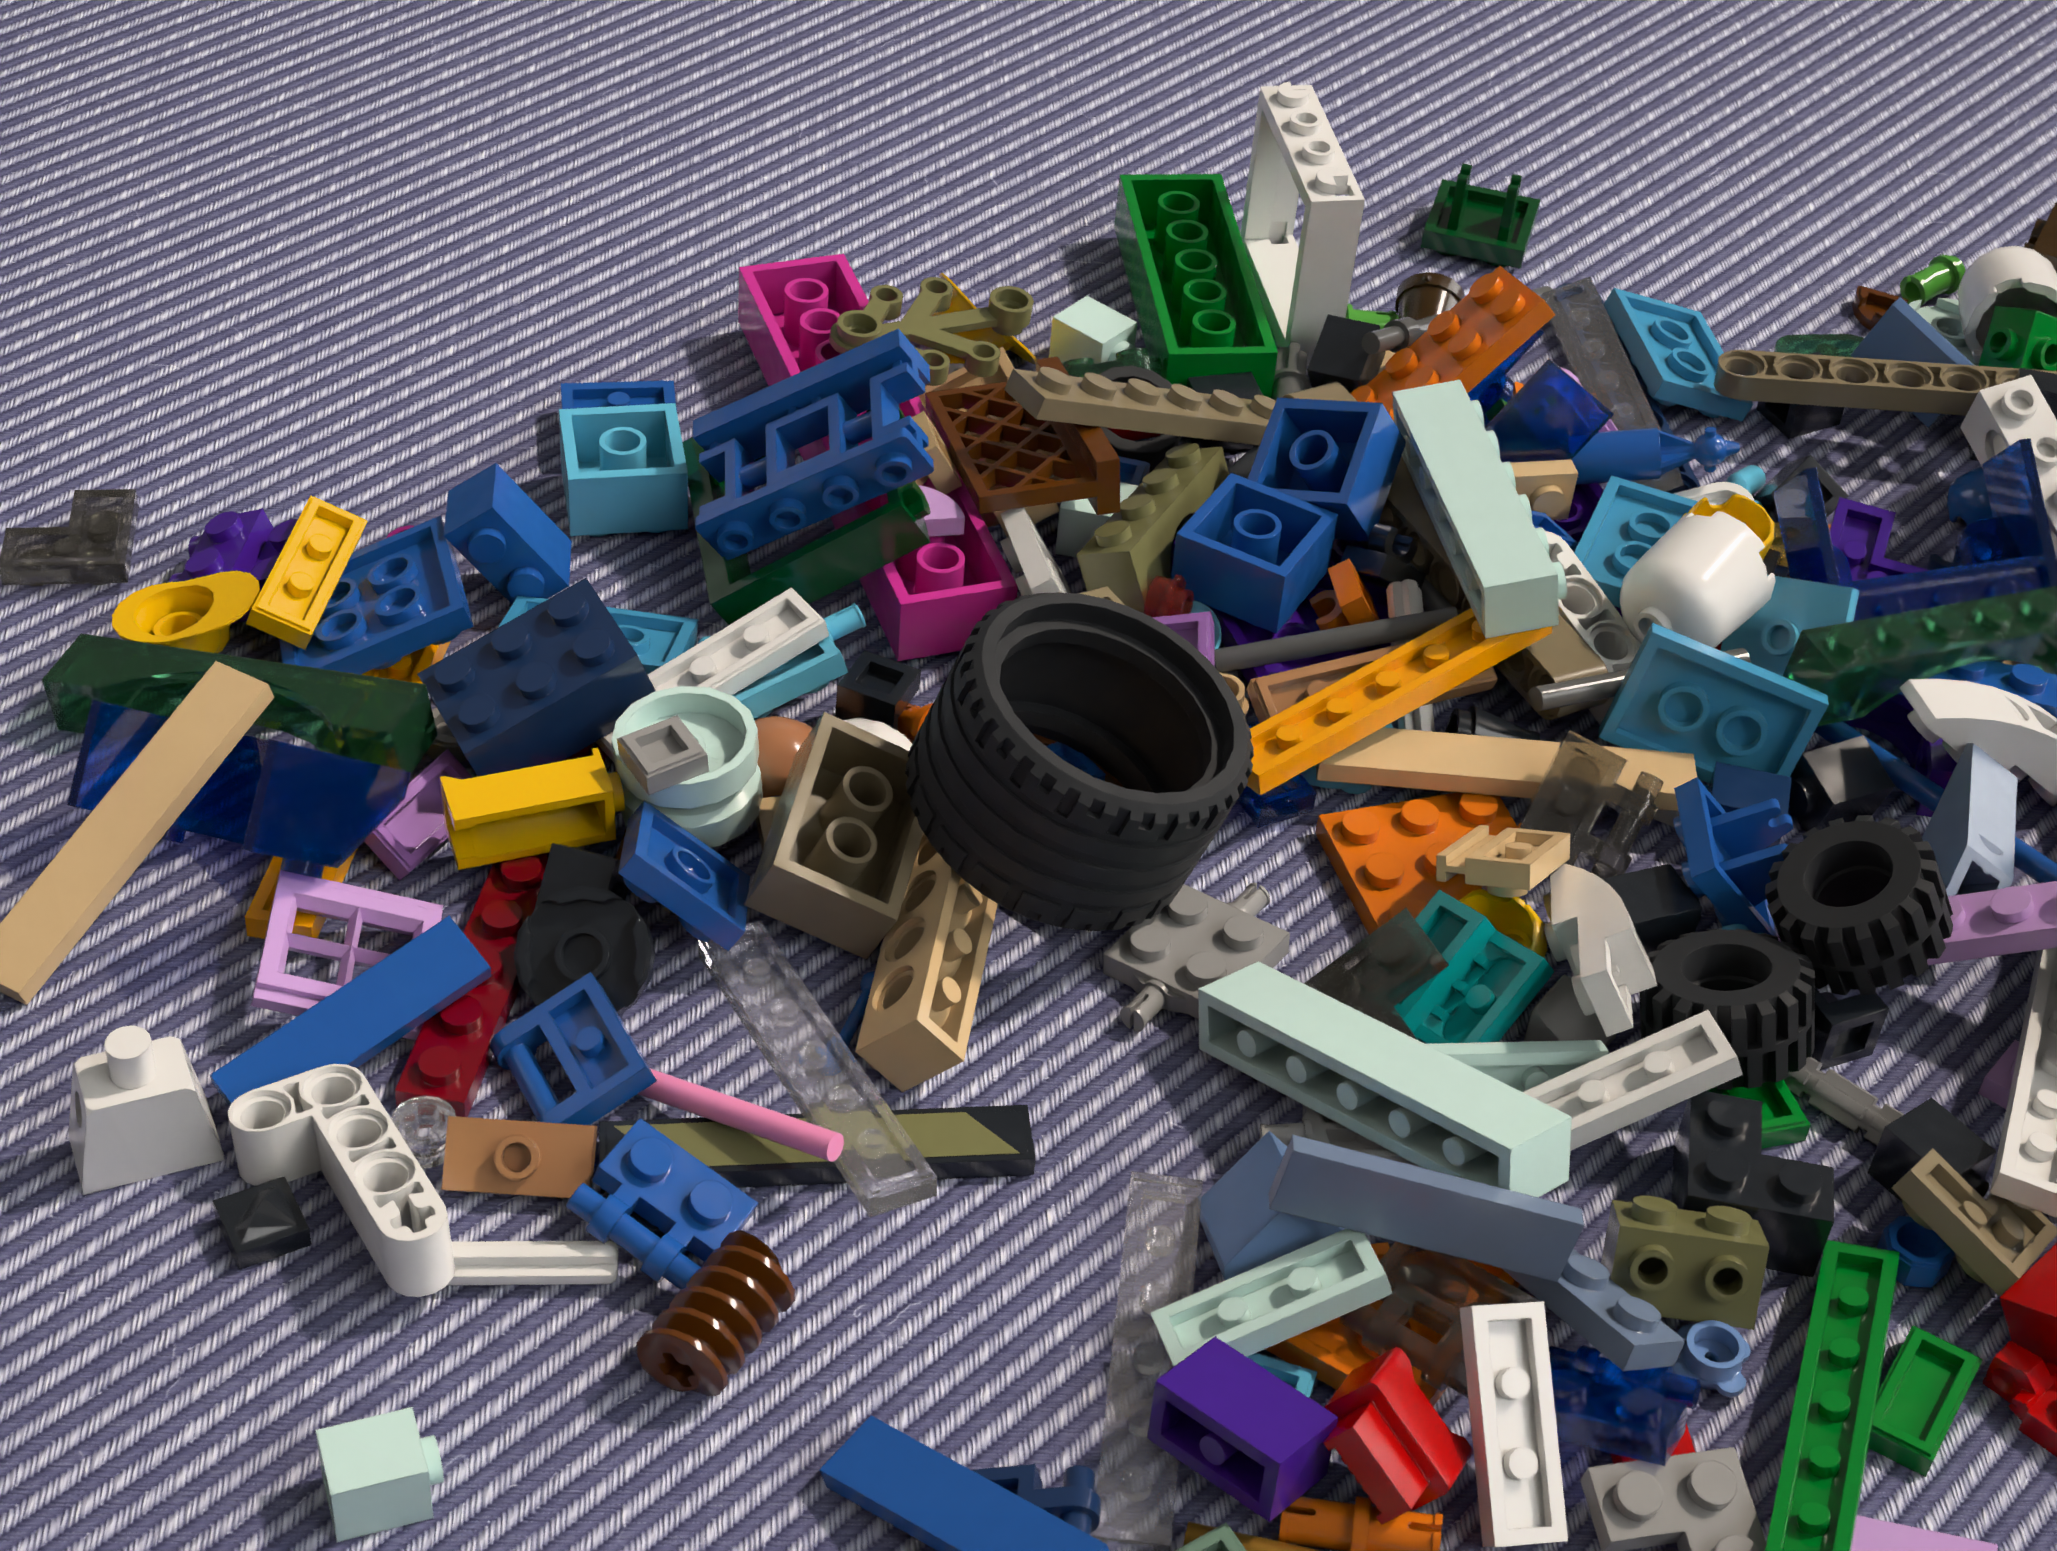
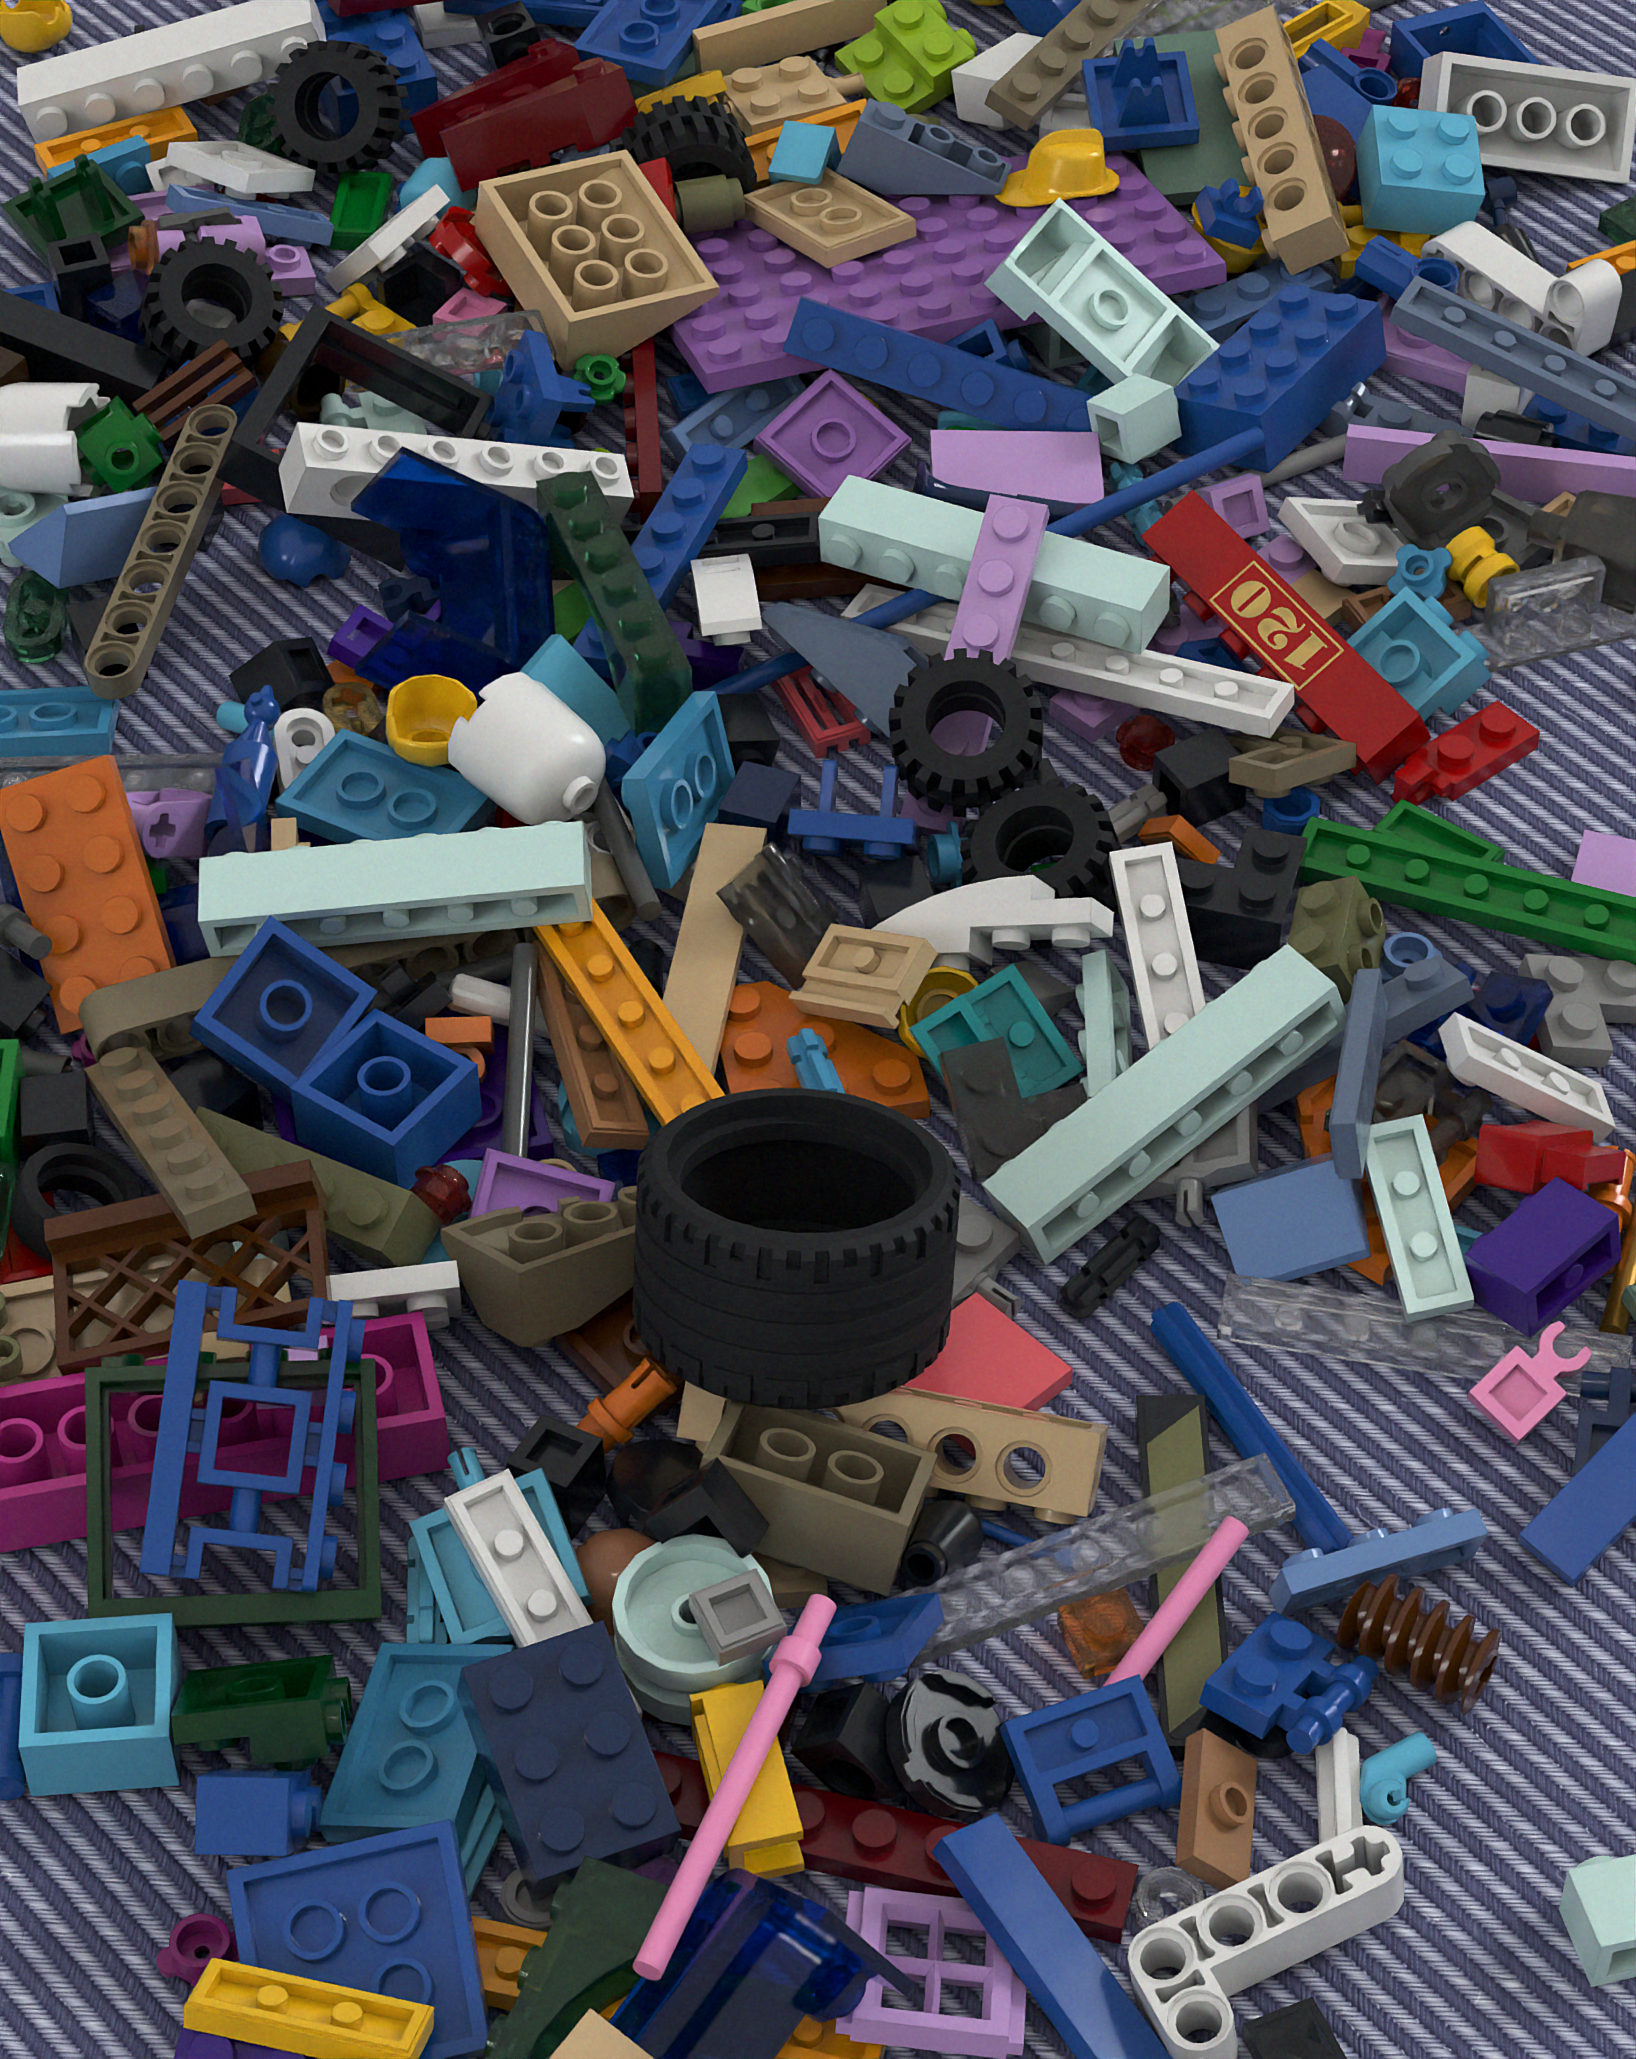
camera: 80 degrees left, 5 degrees up
(564, 1300) = (1385, 1777): none -> medium azure arm
(611, 543) = (284, 1706): none -> dark green plate
(618, 799) = (790, 1669): none -> bright pink bar
(745, 1077) = (1099, 1631): none -> clear orange plate
(772, 734) = (711, 1506): none -> black panel
(817, 950) = (942, 1541): none -> black cone
(827, 1288) = (1432, 1543): none -> medium blue plate
(994, 1203) = (1246, 1424): none -> blue axle
(1051, 994) = (993, 1362): none -> coral tile
(1074, 1425) = (1524, 1388): none -> bright pink plate
(1200, 1092) = (1110, 1267): none -> black axle
(1367, 846) = (811, 1062): none -> dark azure axle
(1832, 1143) = (1184, 838): none -> orange tile
(1982, 1114) = (1139, 752): none -> clear red plate

